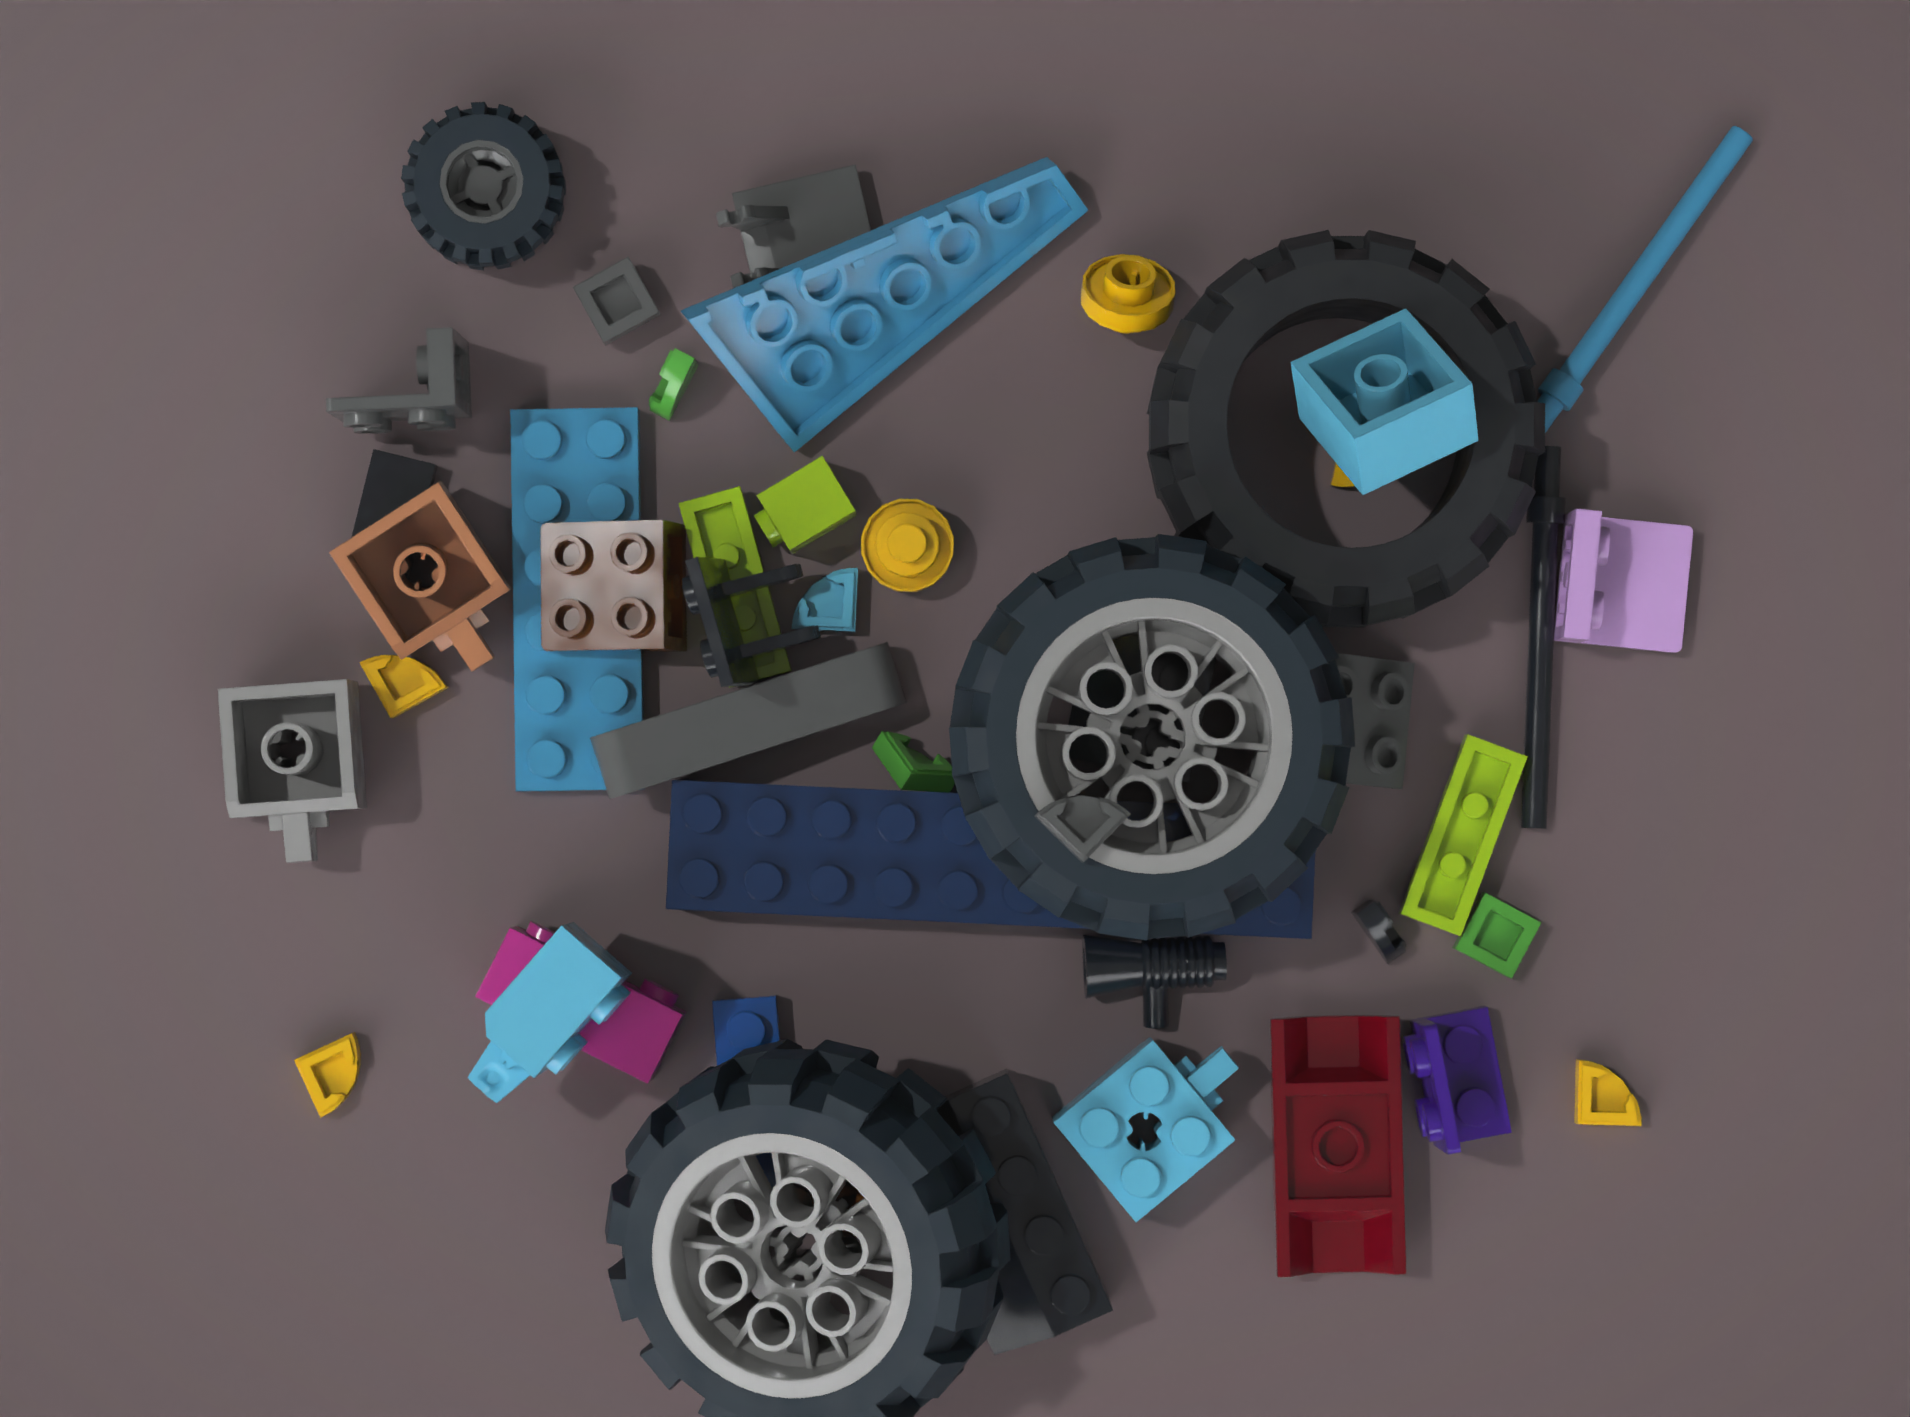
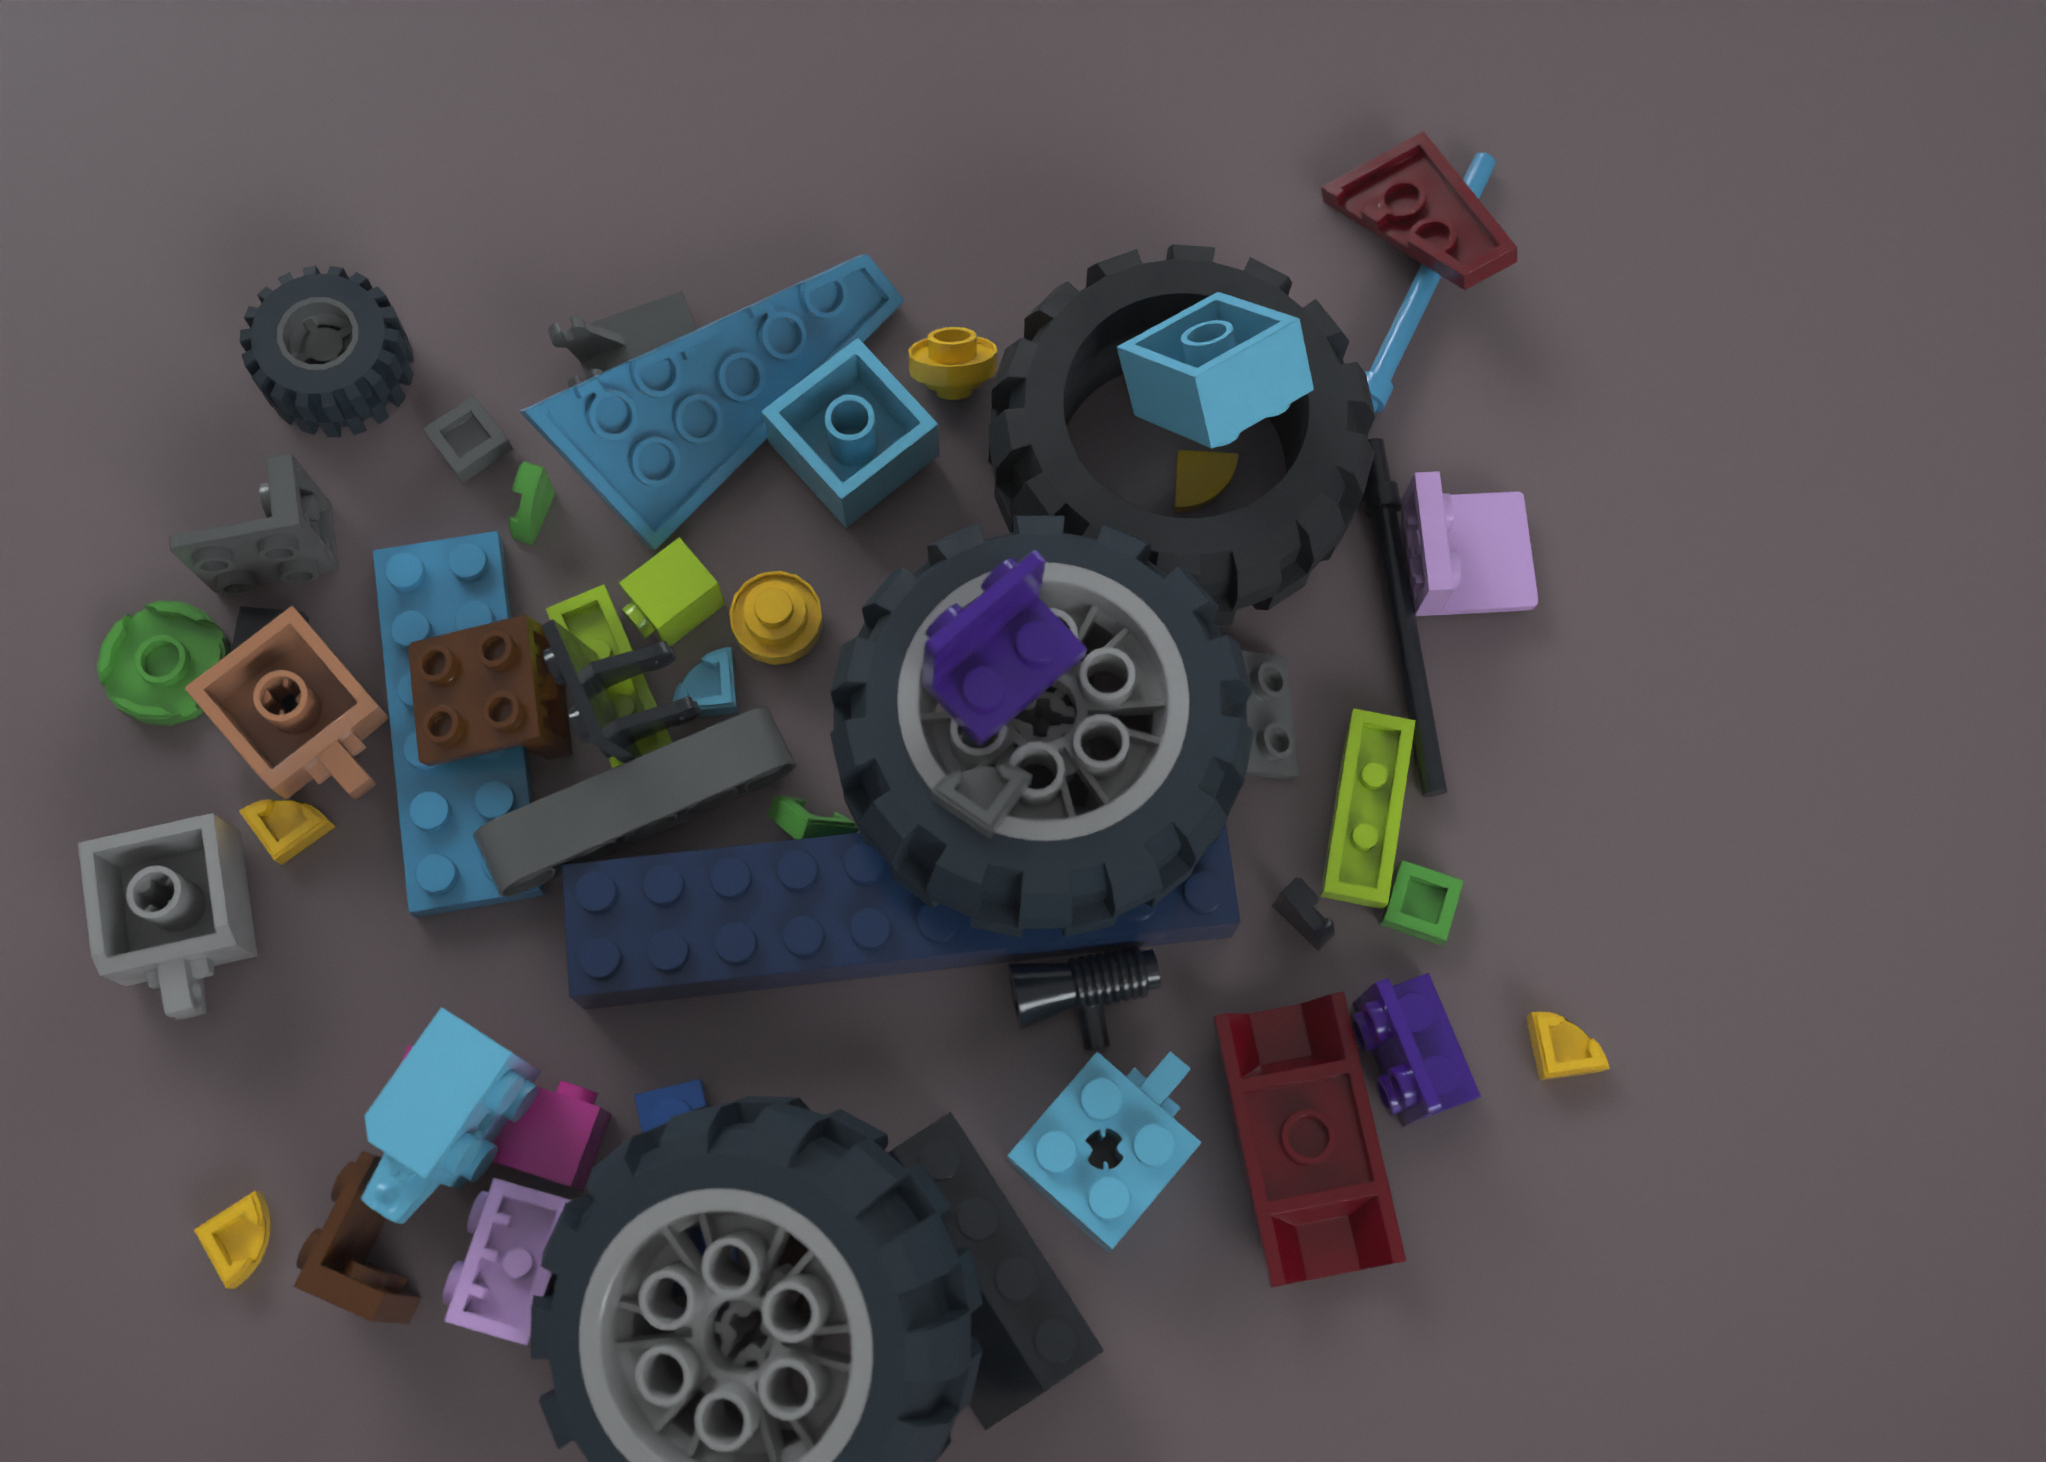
camera: 15 degrees left, 15 degrees down
(293, 494) = (155, 656): none -> bright green tile
(453, 1144) = (336, 1255): none -> reddish brown bracket
(590, 1148) = (503, 1265): none -> lavender bracket
(1011, 363) = (851, 432): none -> medium azure brick
(1123, 699) = (998, 650): none -> dark purple bracket
(1657, 196) = (1425, 211): none -> dark red wing

